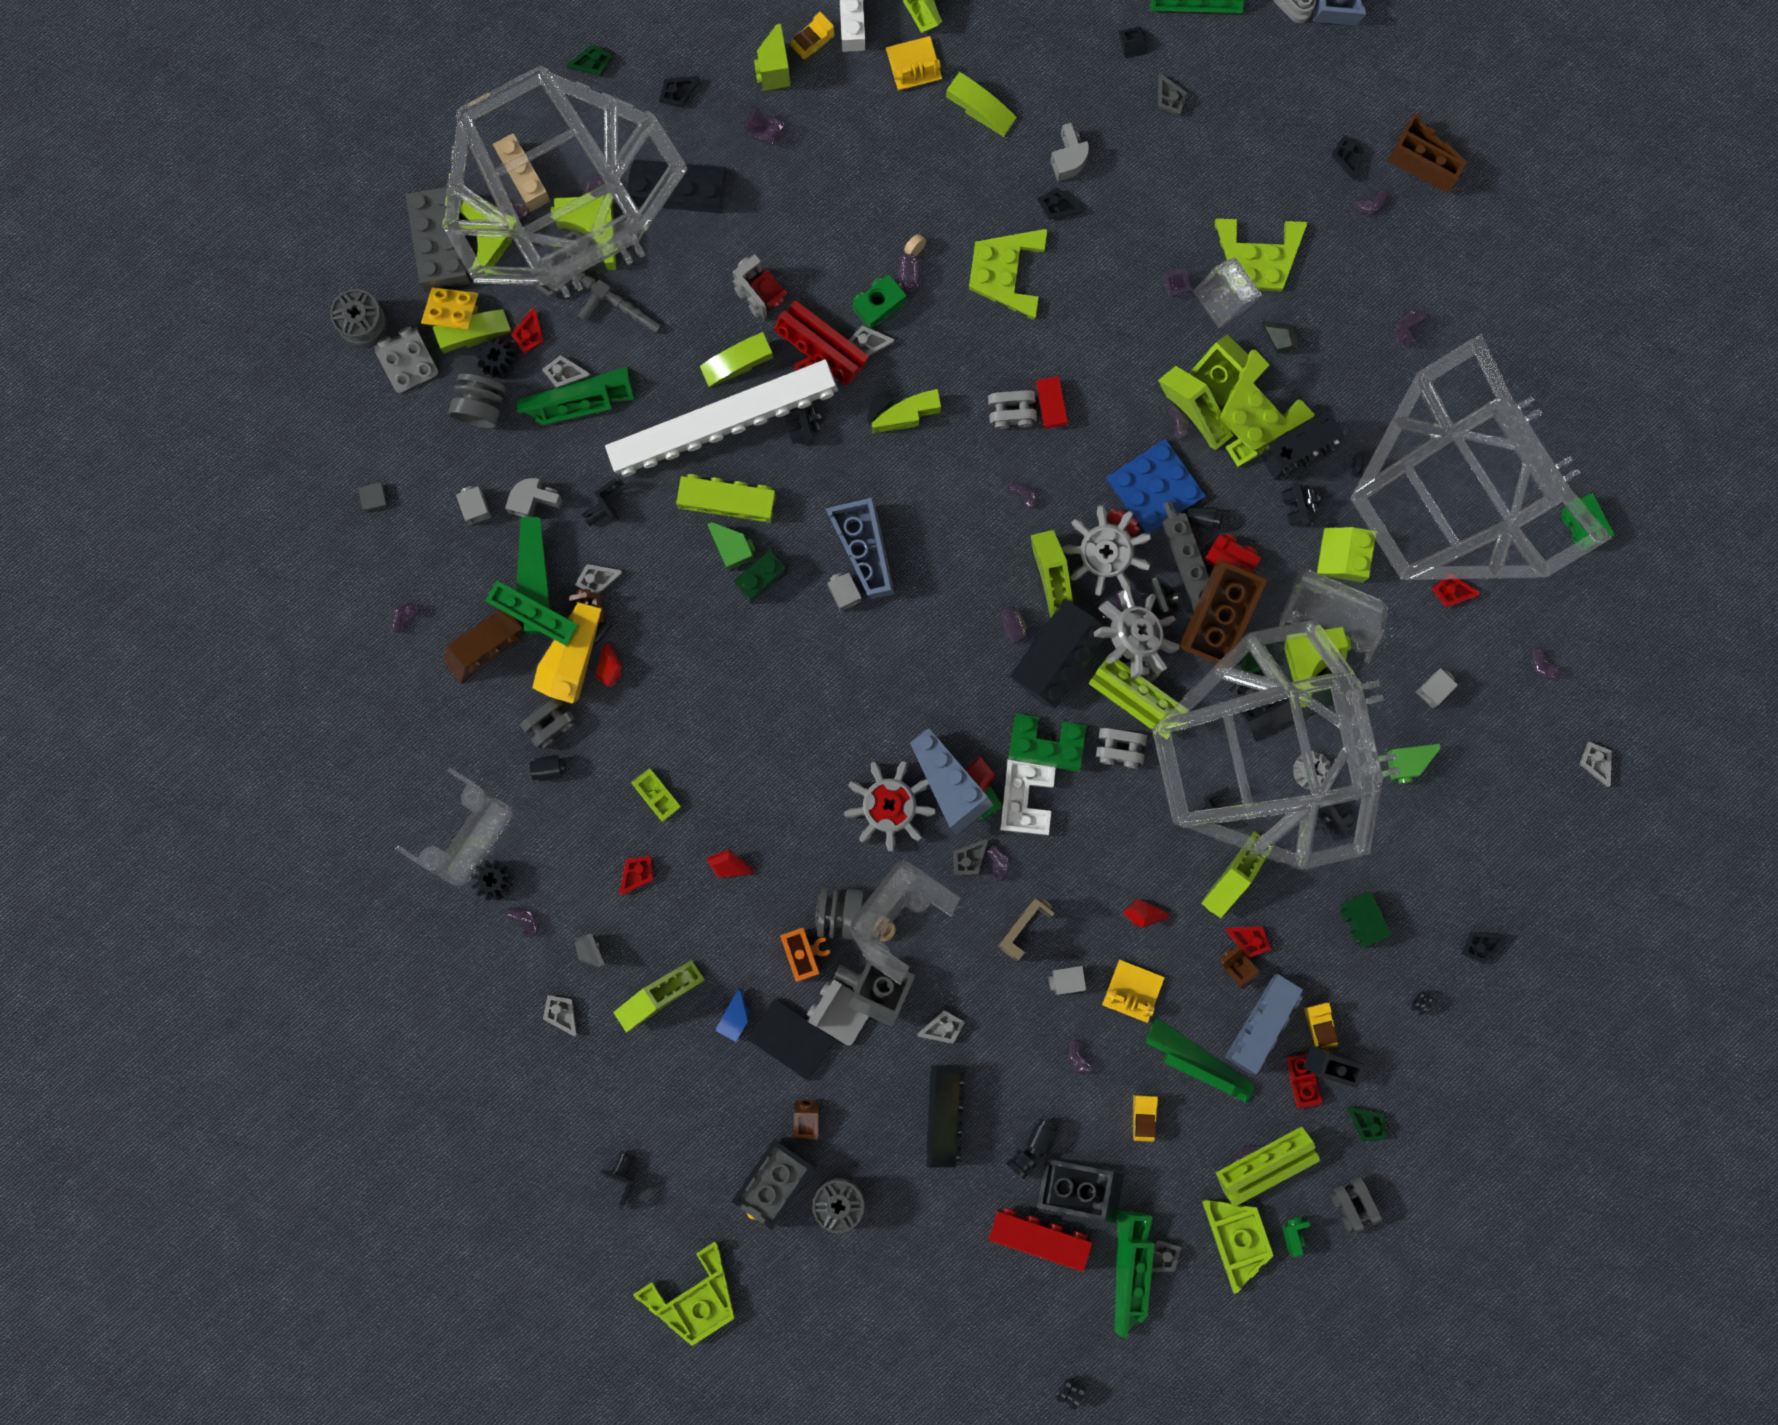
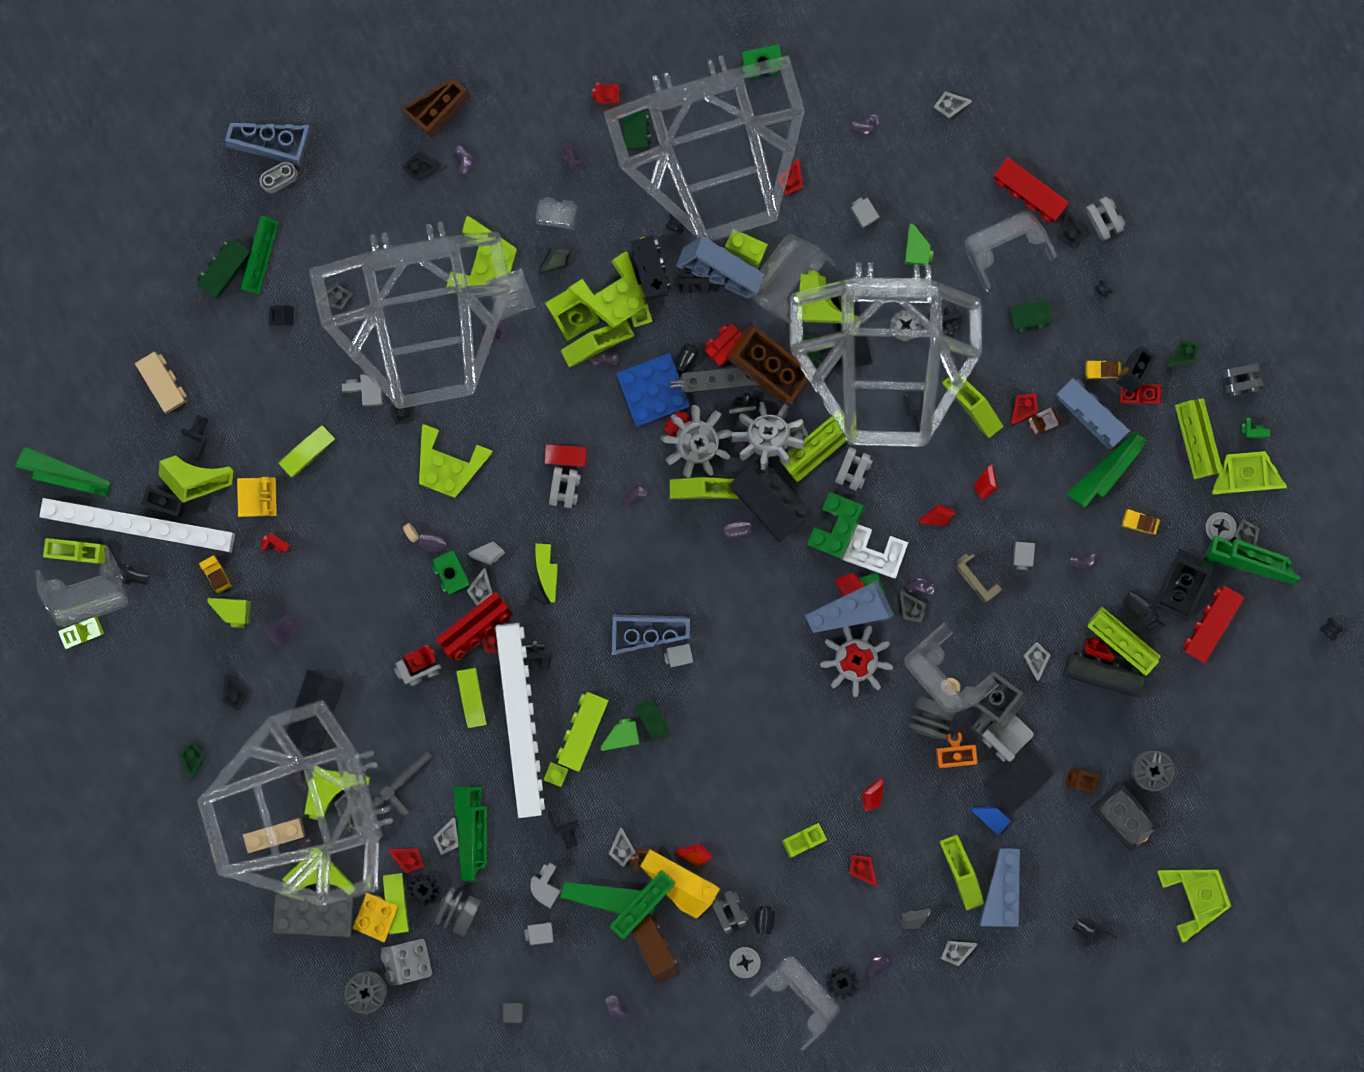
camera: 80 degrees left, 5 degrees up
(480, 755) = (753, 967): none -> light grey gear
(639, 1053) = (1002, 895): none -> sand blue wedge
(667, 481) = (556, 774): none -> lime plate
(866, 94) = (278, 544): none -> red bracket
(912, 339) = (488, 553): none -> light grey piece
(974, 1101) = (1098, 648): none -> red piece
(991, 1131) = (1124, 641): none -> lime brick
(1089, 864) = (938, 516): none -> red piece
(1133, 991) = (1042, 506): yellow hinge -> none
(1164, 143) = (374, 315): none -> clear windscreen
(1171, 1212) = (1228, 523): none -> light grey gear
(1326, 527) = (721, 267): none -> sand blue wedge
(1336, 322) = (556, 213): none -> clear slope
(1436, 837) = (980, 244): none -> clear windscreen
(1463, 392) = (635, 131): none -> dark green brick
(1498, 347) = (606, 94): none -> red bracket
(1519, 883) = (1030, 190): none -> red brick
(1524, 985) = (1107, 207): none -> light grey brick

